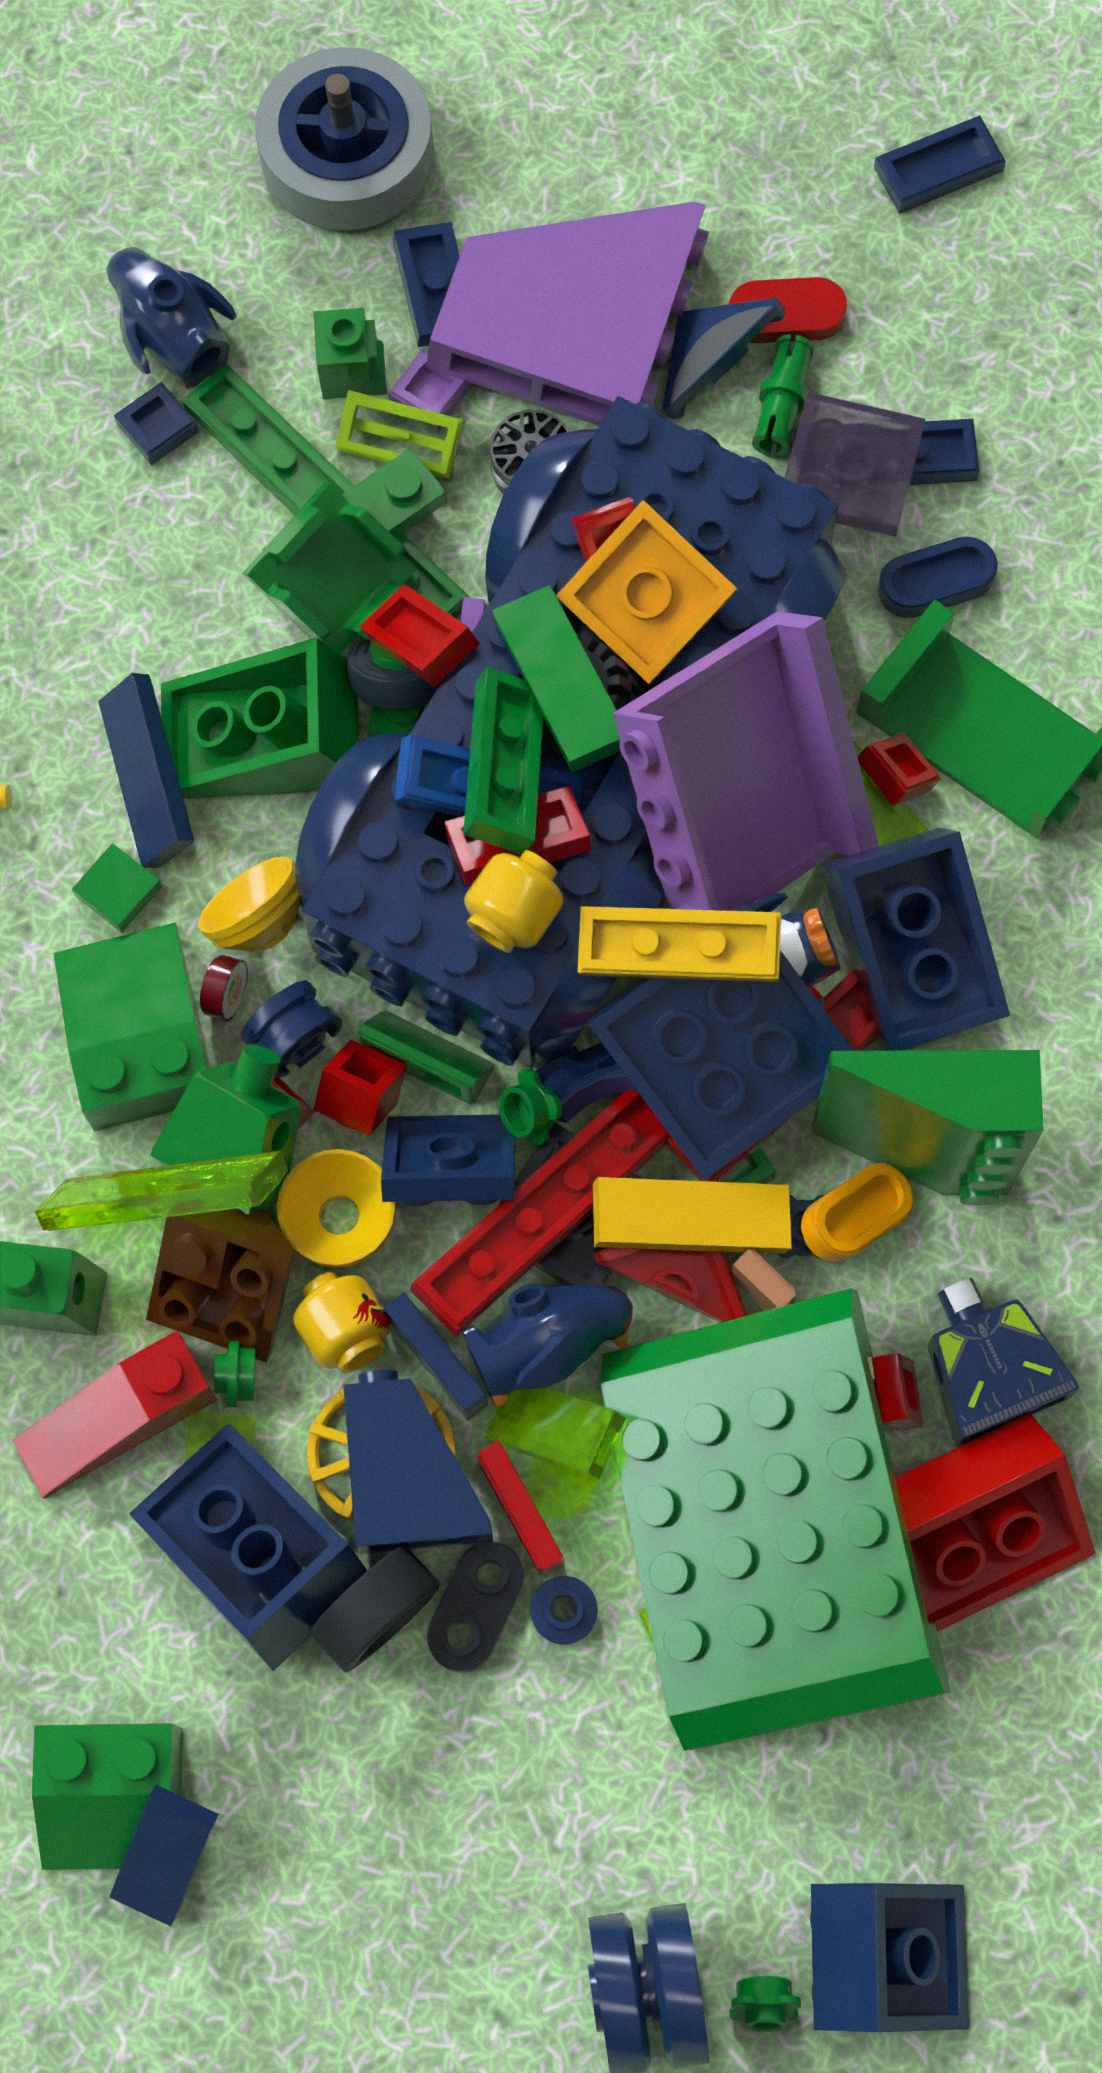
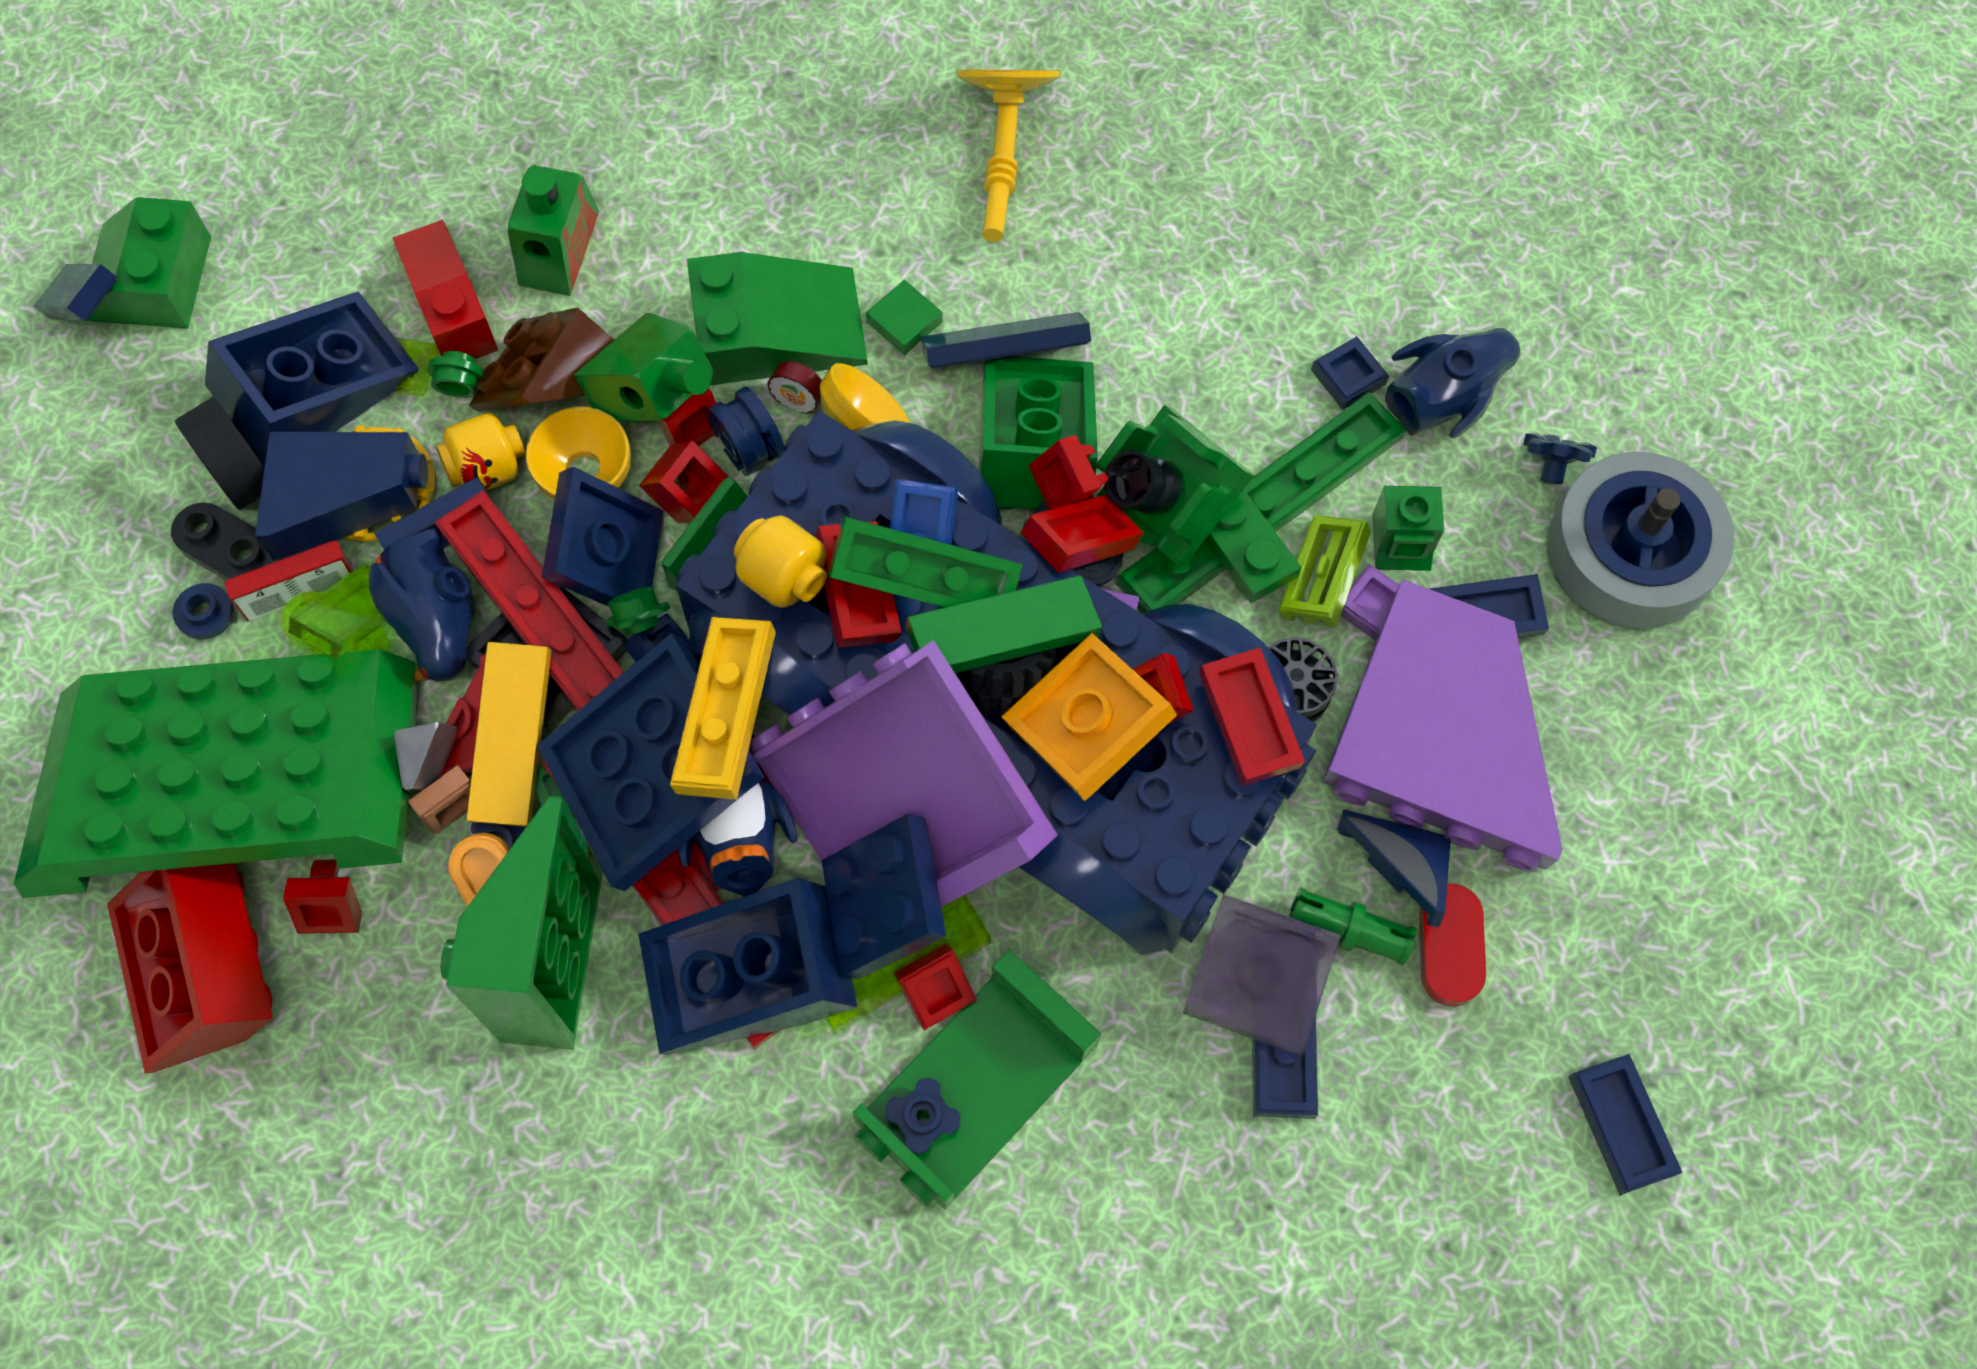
camera: 90 degrees right, 5 degrees down
(162, 1191) = (601, 311): clear neon green tile -> none
(244, 216) = (1557, 454): none -> dark blue plant
(352, 656) = (1066, 473): none -> red tile
(353, 597) = (1131, 485): none -> black wheel
(627, 444) = (1251, 716): none -> red tile
(721, 1299) = (423, 753): none -> flat silver slope
(842, 792) = (883, 897): none -> dark blue plate
(943, 572) = (1144, 1058): dark blue tile -> none
(993, 1364) = (327, 996): dark blue torso -> none
(1025, 781) = (921, 1134): none -> dark blue plate

